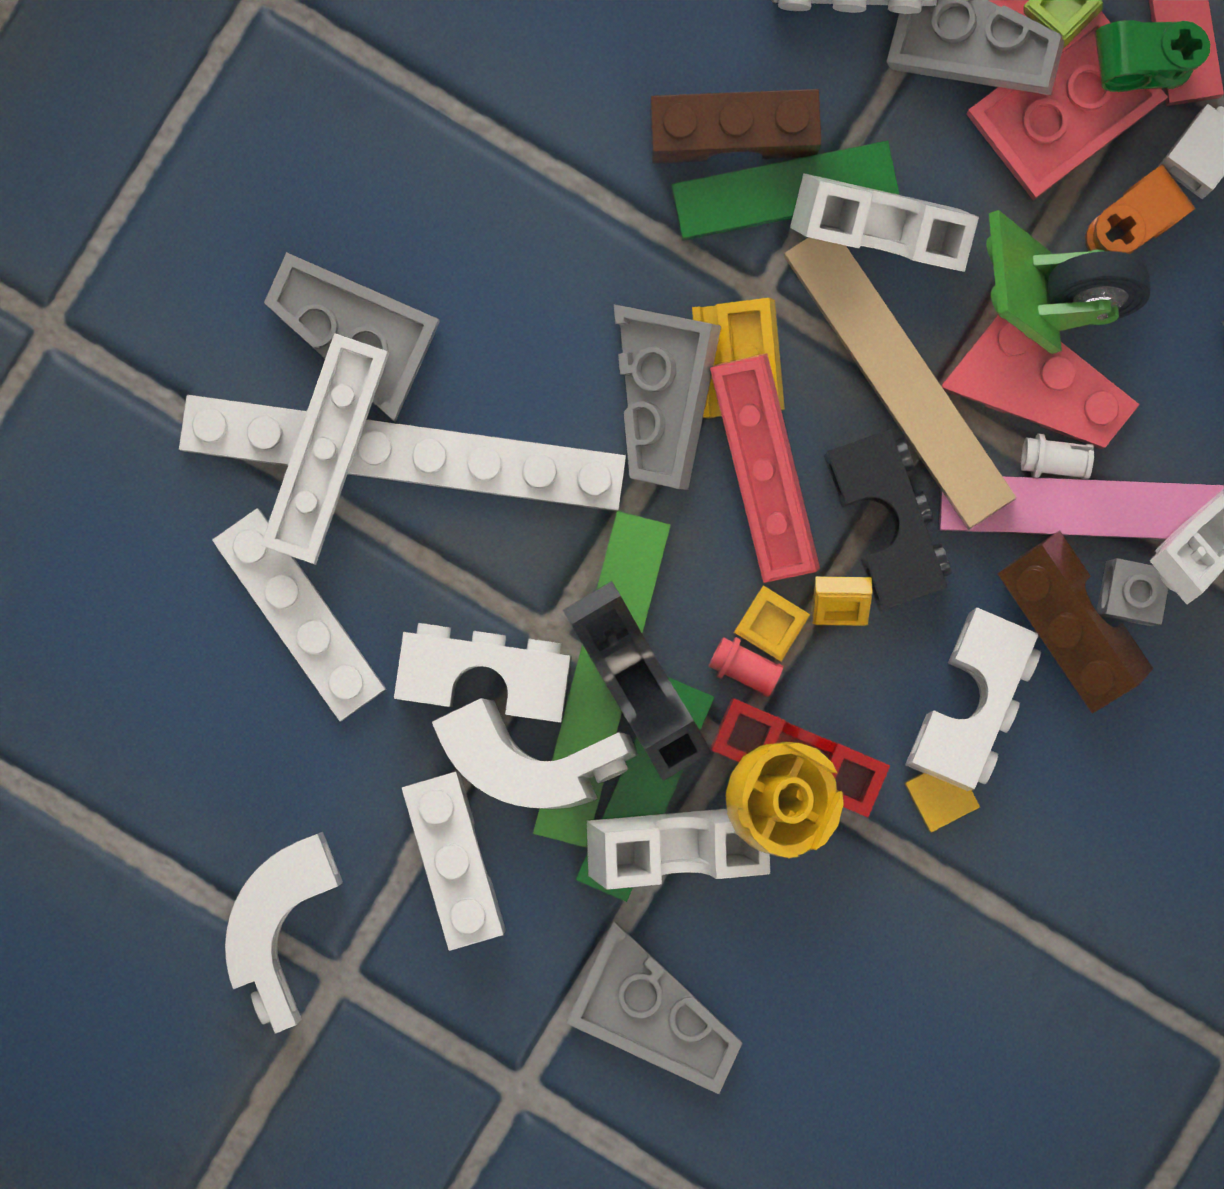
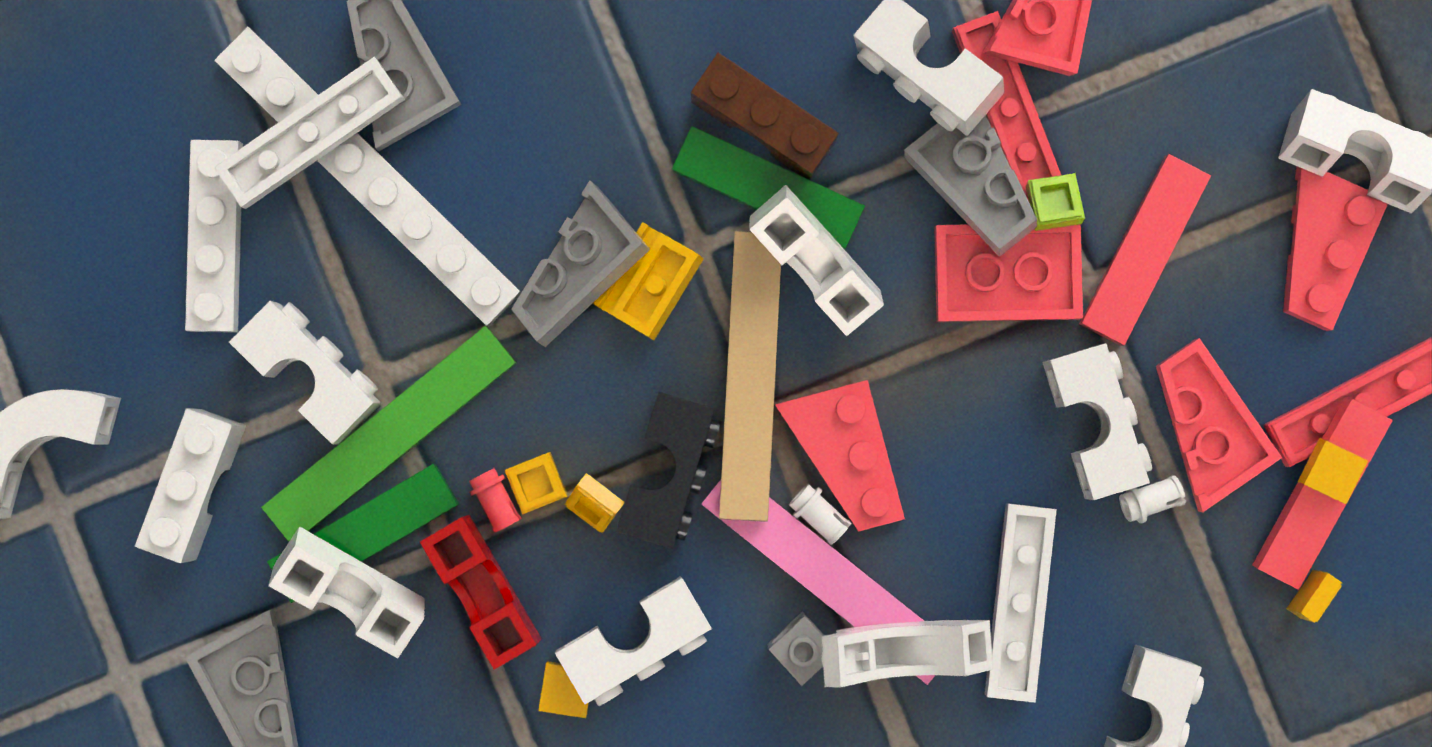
camera: 35 degrees right, 0 degrees up
(494, 764) = (268, 444): white arch -> none
(637, 680) = (406, 454): black arch -> none
(765, 468) = (608, 371): coral tile -> none
(784, 799) = (438, 615): yellow cylinder -> none
(1052, 593) = (739, 674): reddish brown arch -> none
(1062, 290) = (896, 394): bright green plate -> none
(1142, 213) = (1007, 386): orange piece -> none
(1149, 54) = (1082, 276): green piece -> none

